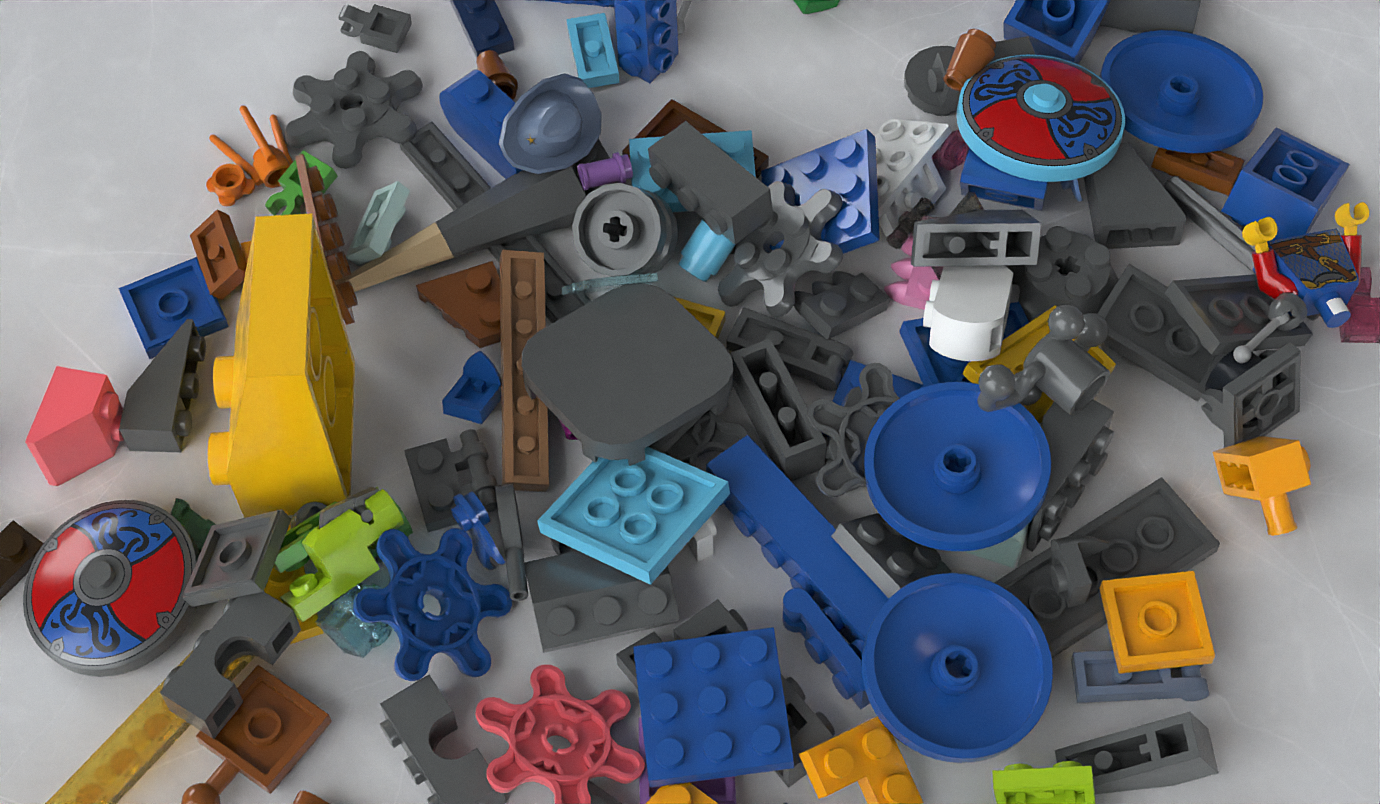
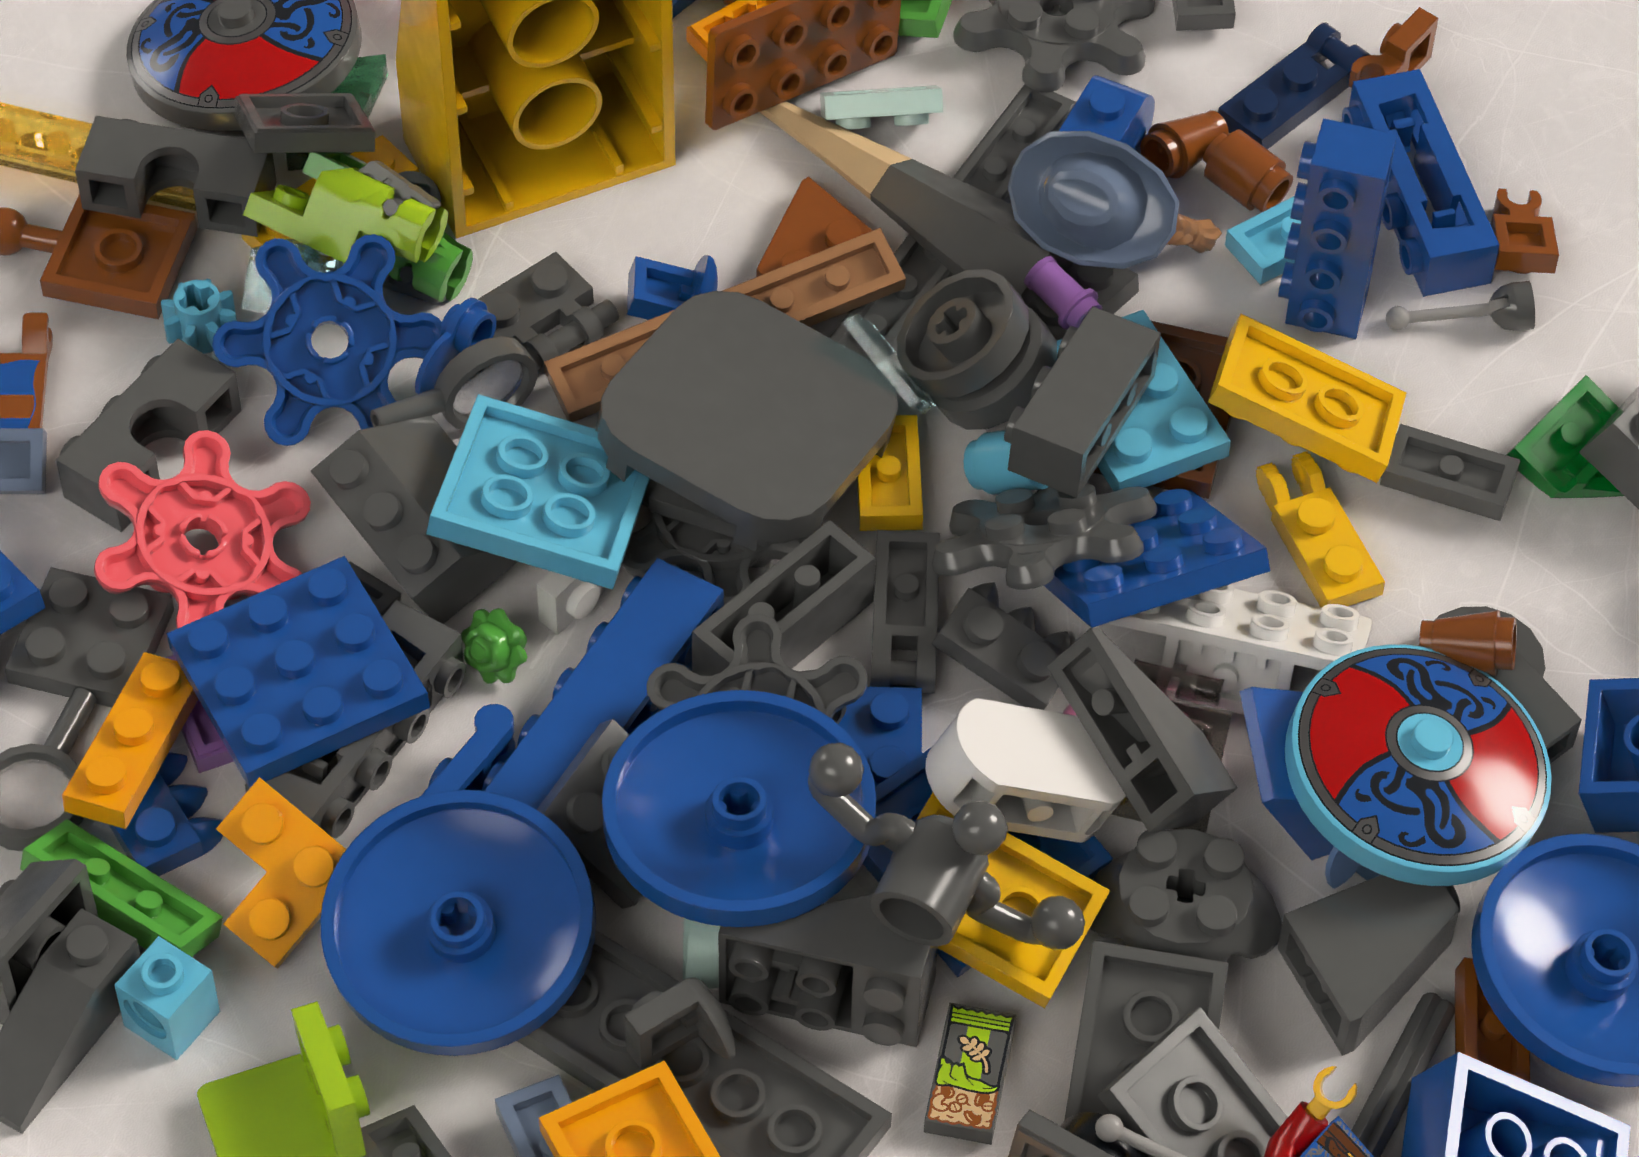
camera: 65 degrees right, 5 degrees down
(339, 692) = (197, 313): none -> medium azure gear
(535, 55) = (1246, 171): none -> dark orange brick
(721, 584) = (494, 646): none -> bright green plant
(733, 83) = (1308, 398): none -> yellow plate
(806, 41) = (1450, 472): none -> dark grey plate
(814, 120) = (1319, 535): none -> yellow hinge
(1142, 432) = (970, 1073): none -> tile

